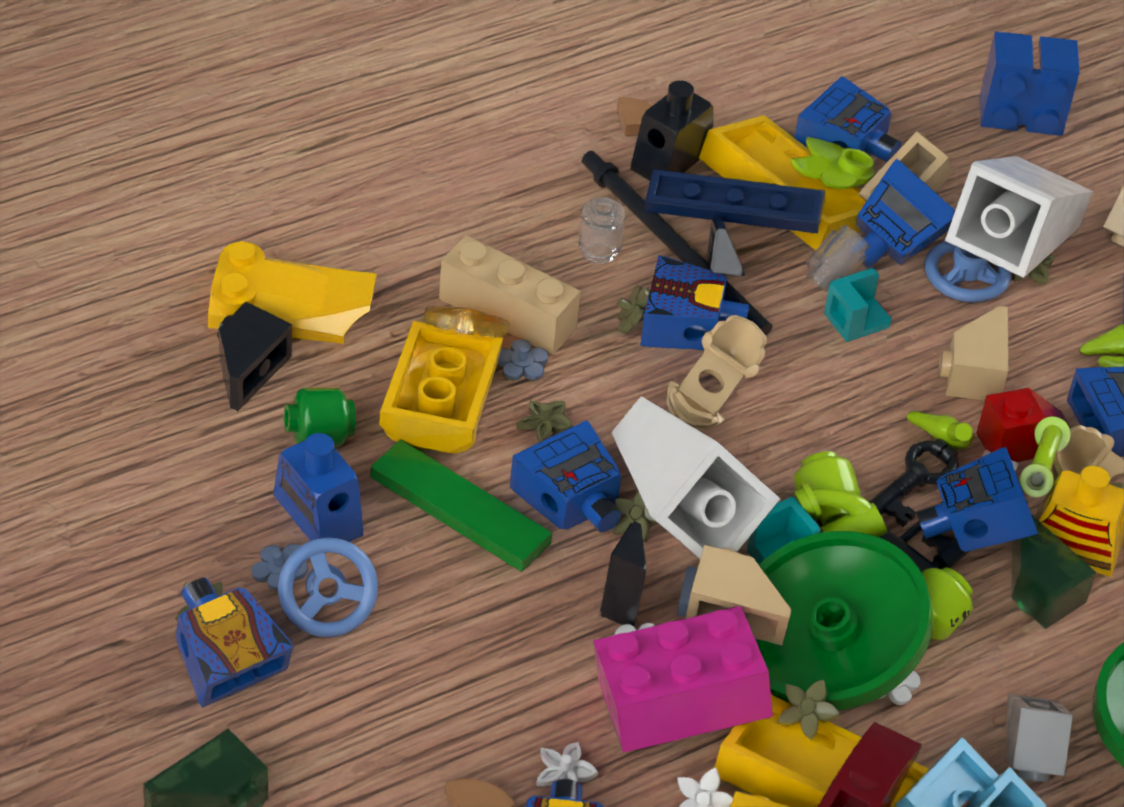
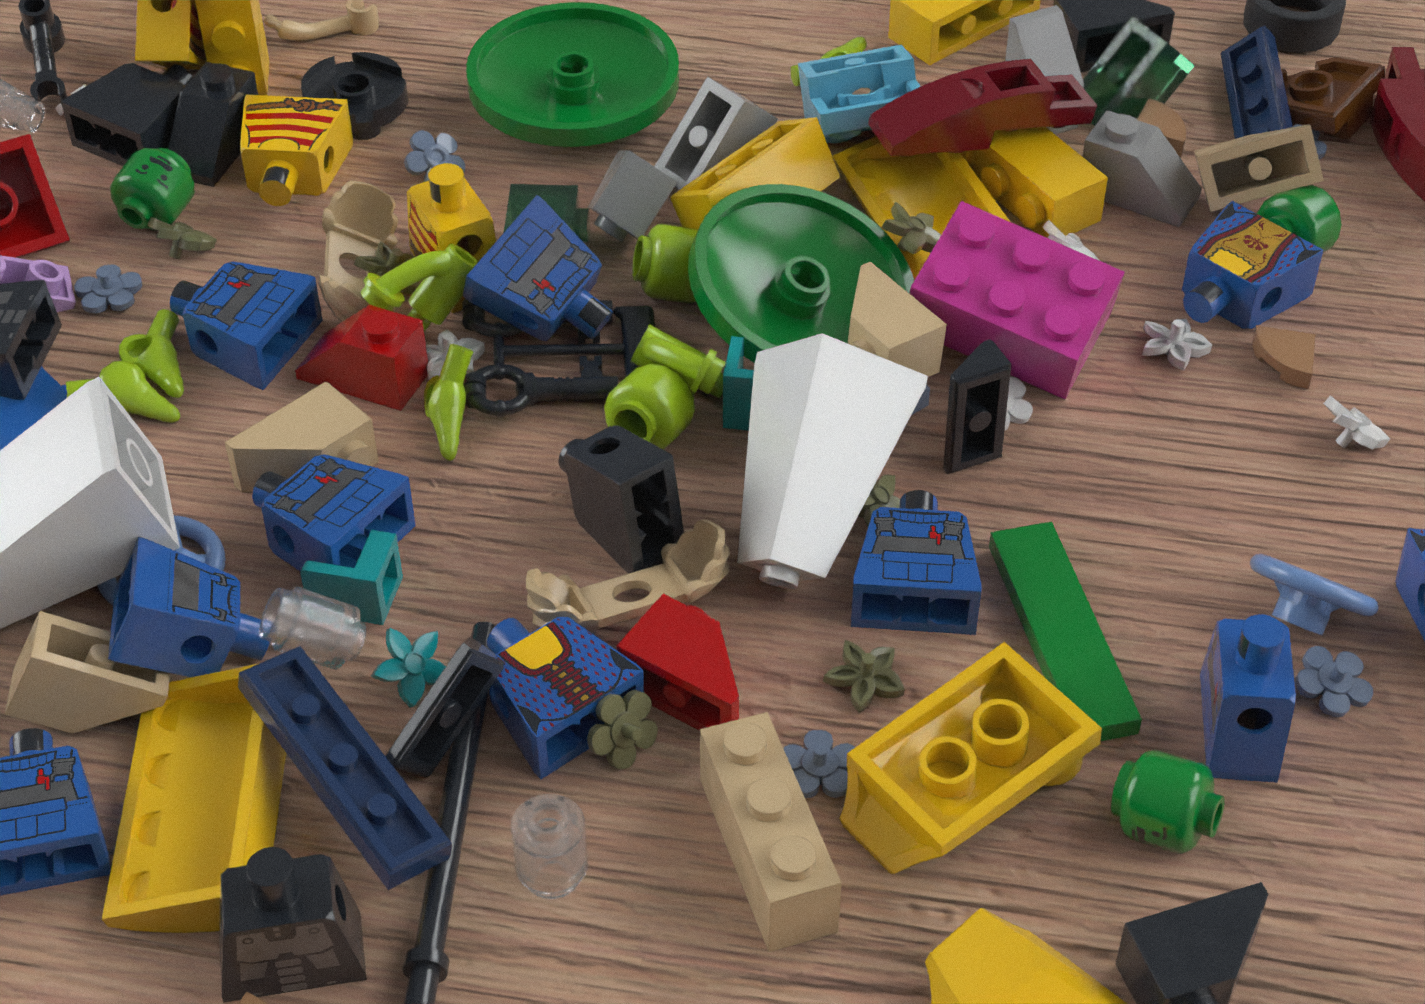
camera: 135 degrees left, 0 degrees up
(386, 755) = (1356, 426): none -> white plant
(466, 321) = (866, 814): clear yellow wheel -> none
(632, 352) = (684, 663): none -> red slope
(773, 411) = (624, 495): none -> black torso
(775, 284) = (410, 664): none -> teal plant
(834, 165) = (143, 751): lime plate -> none
(908, 319) = (331, 509): none -> blue torso
(954, 685) = (783, 154): none -> yellow brick
(1029, 637) = (630, 196): none -> light grey slope

